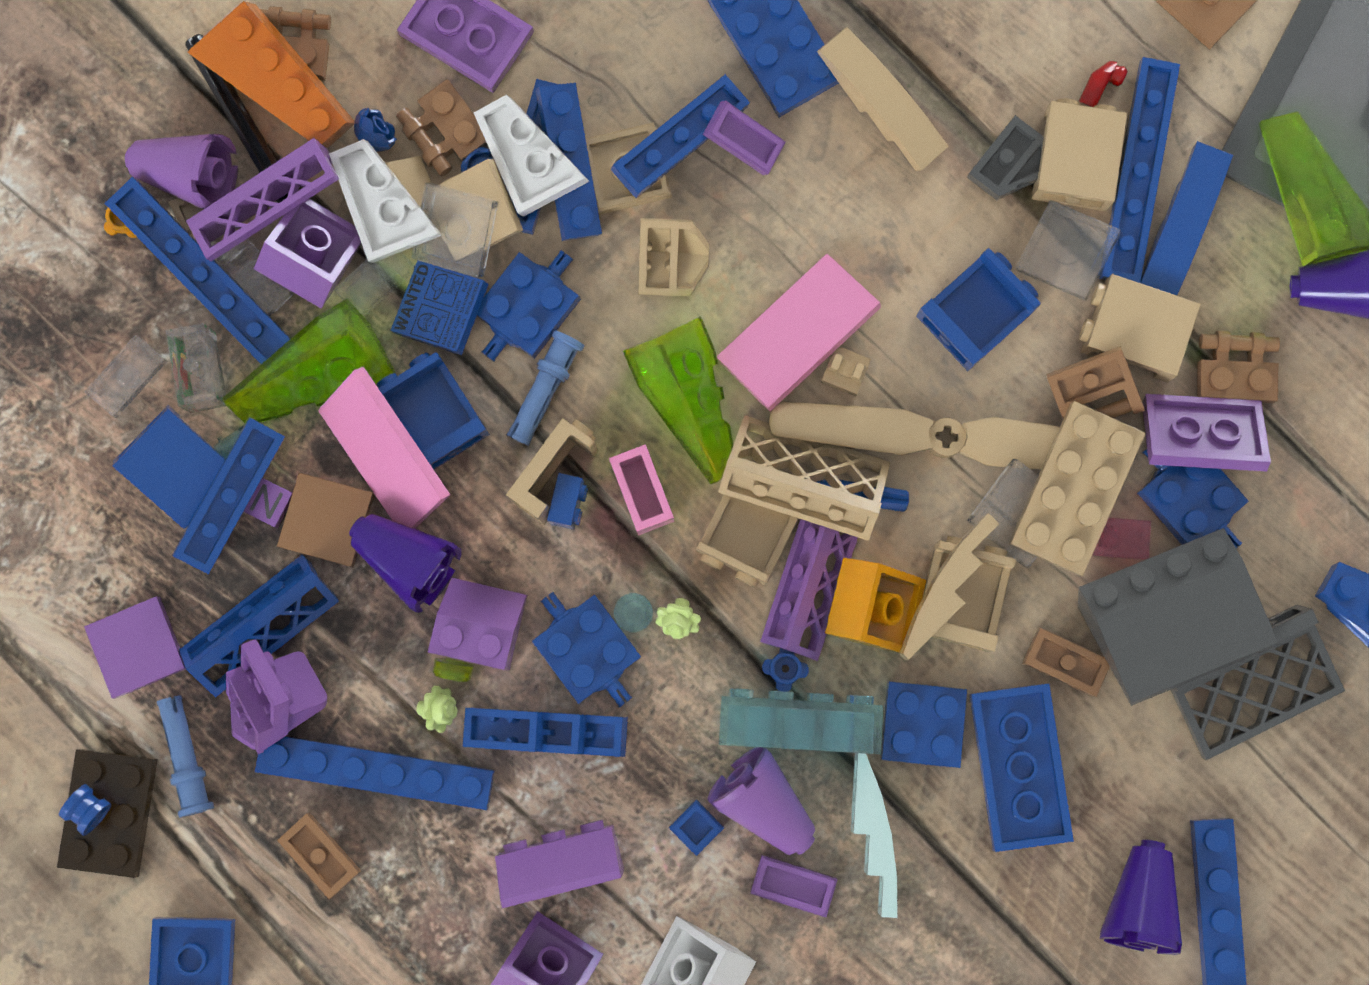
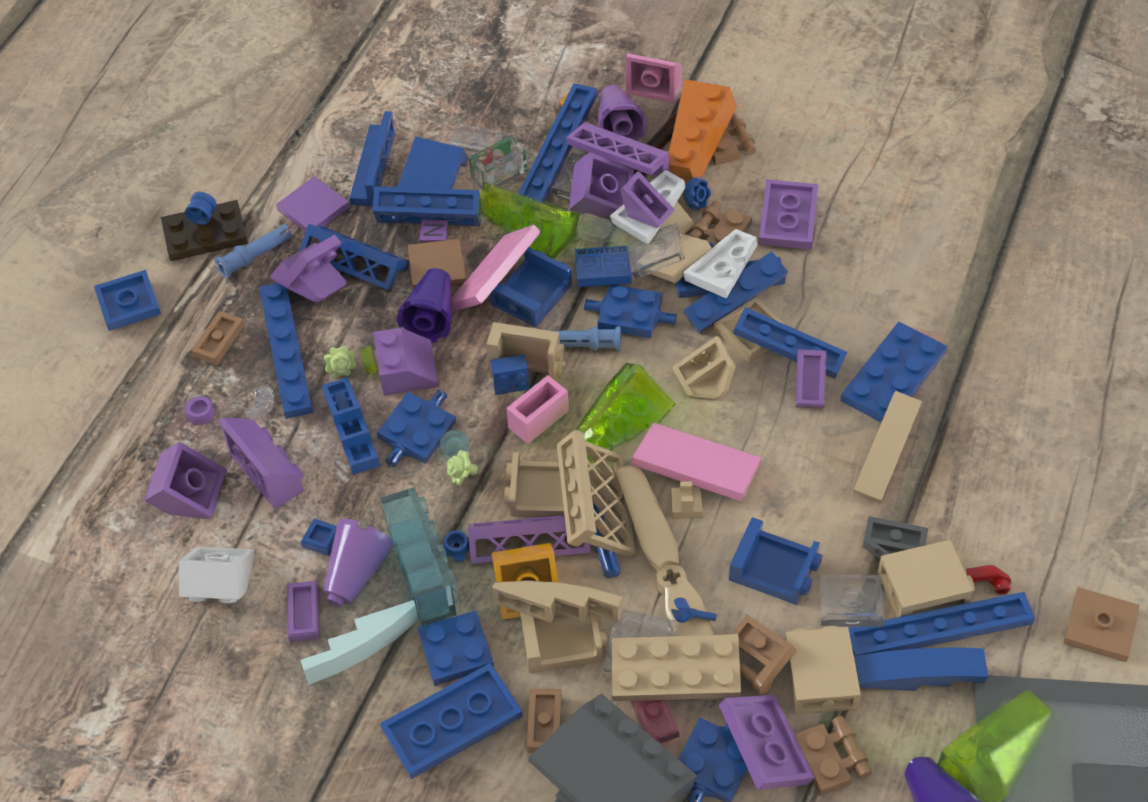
camera: 65 degrees right, 30 degrees down
(96, 536) = (373, 161): none -> blue fence
(134, 85) = (652, 78): none -> bright pink slope
(391, 208) = (644, 201): none -> medium lavender slope
(426, 916) = (199, 410): none -> medium lavender tile
(457, 831) = (263, 403): none -> clear arm
(1012, 448) = (685, 613): none -> blue hand

